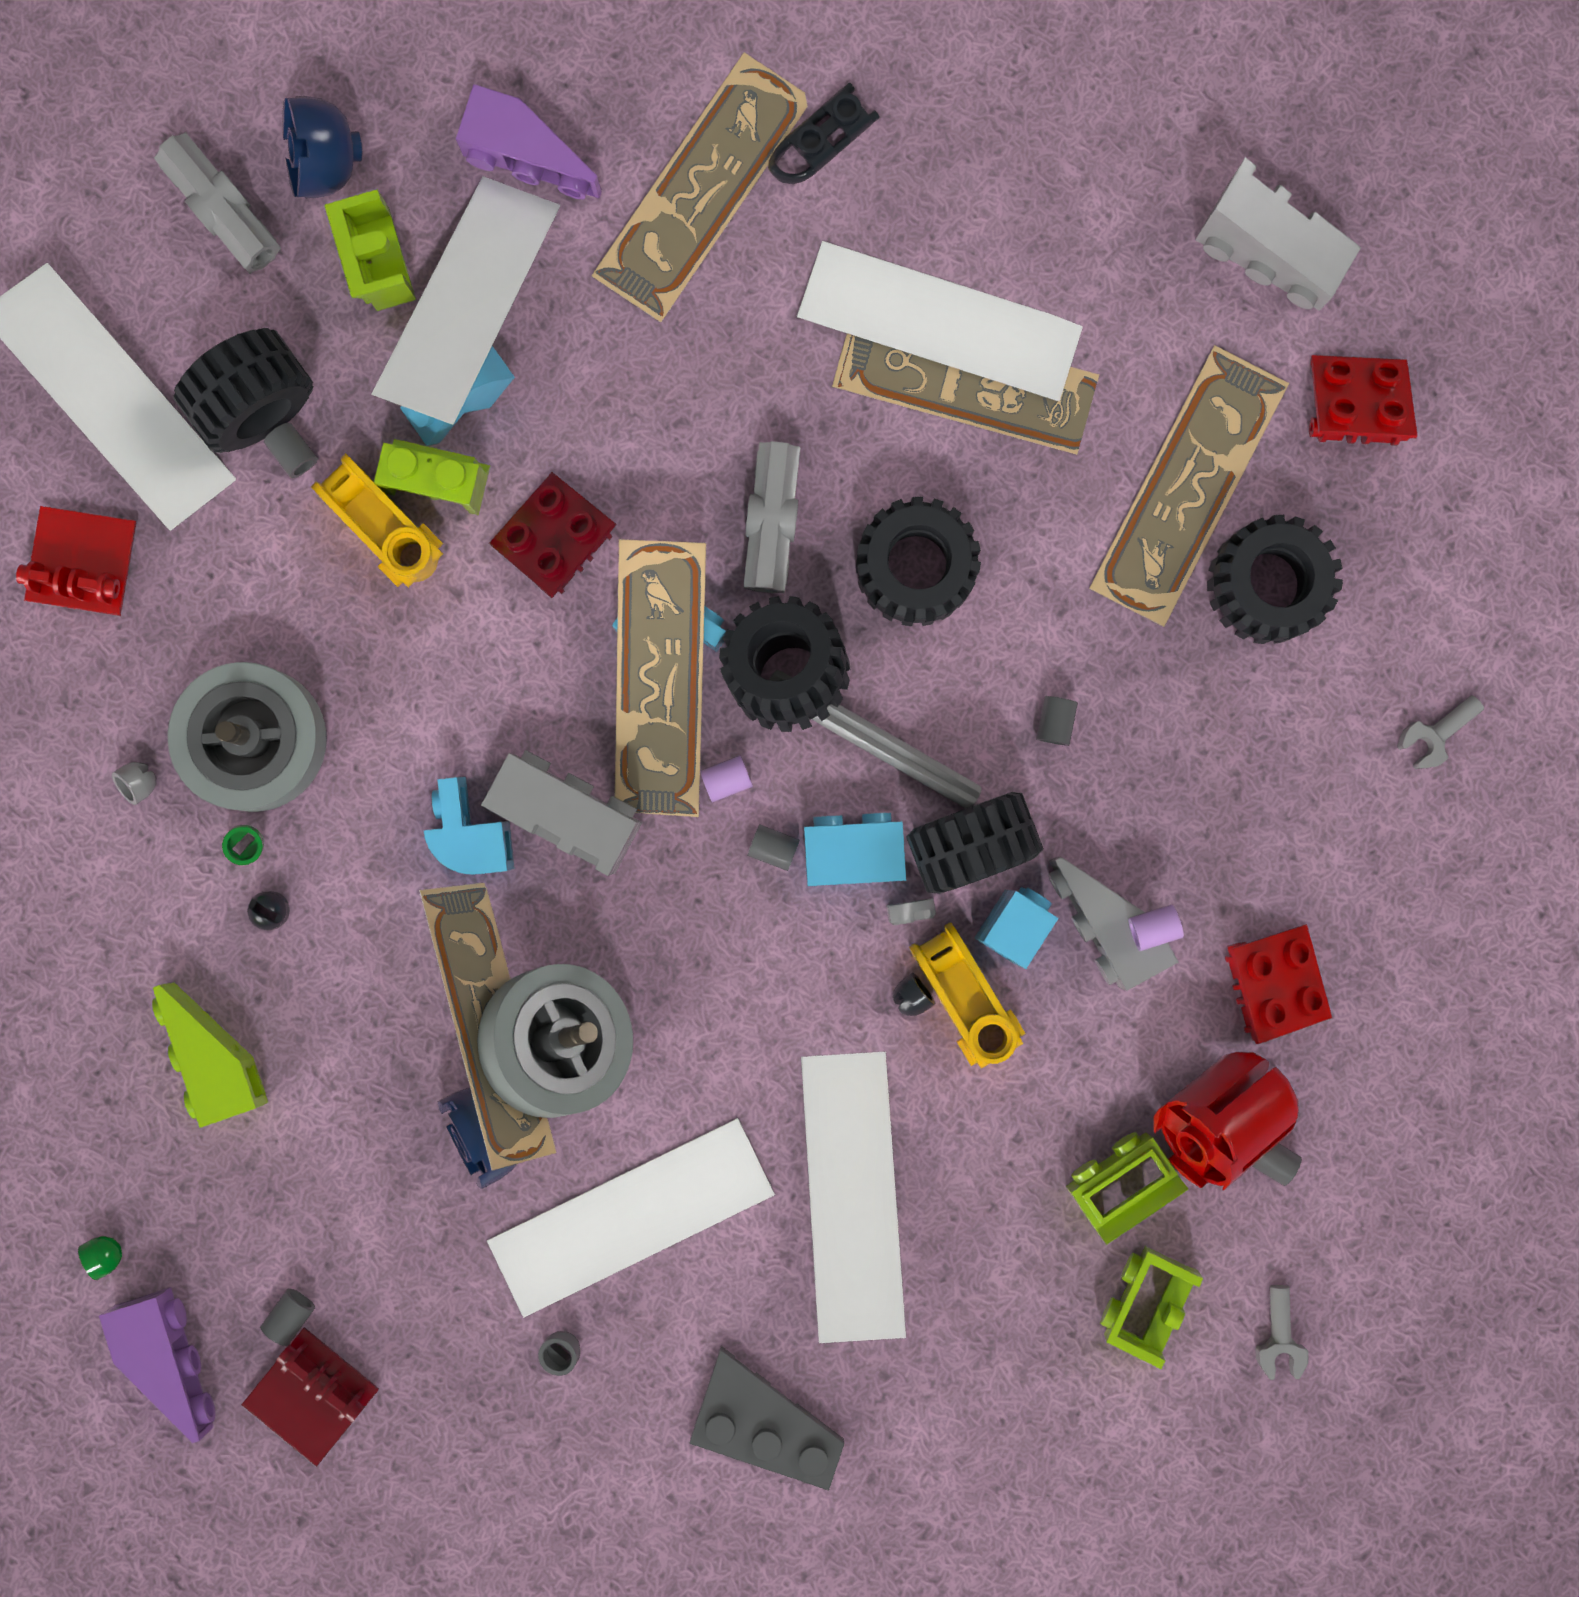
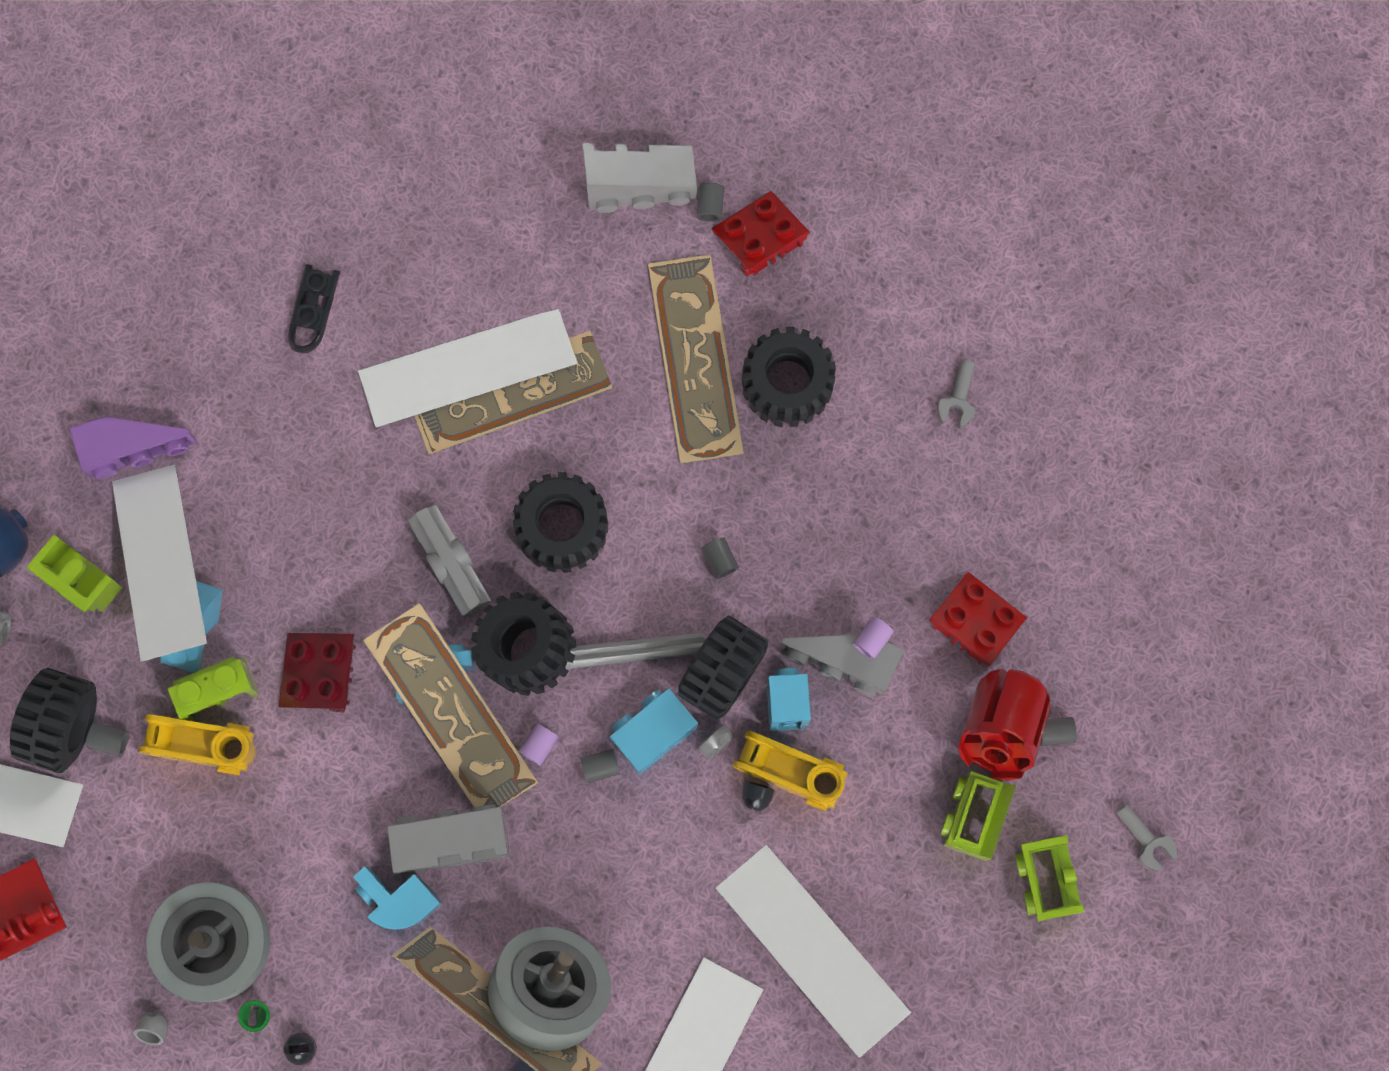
camera: 40 degrees left, 10 degrees down
(701, 187) = (258, 392): sticker -> none
(1332, 325) = (710, 202): none -> dark grey hinge

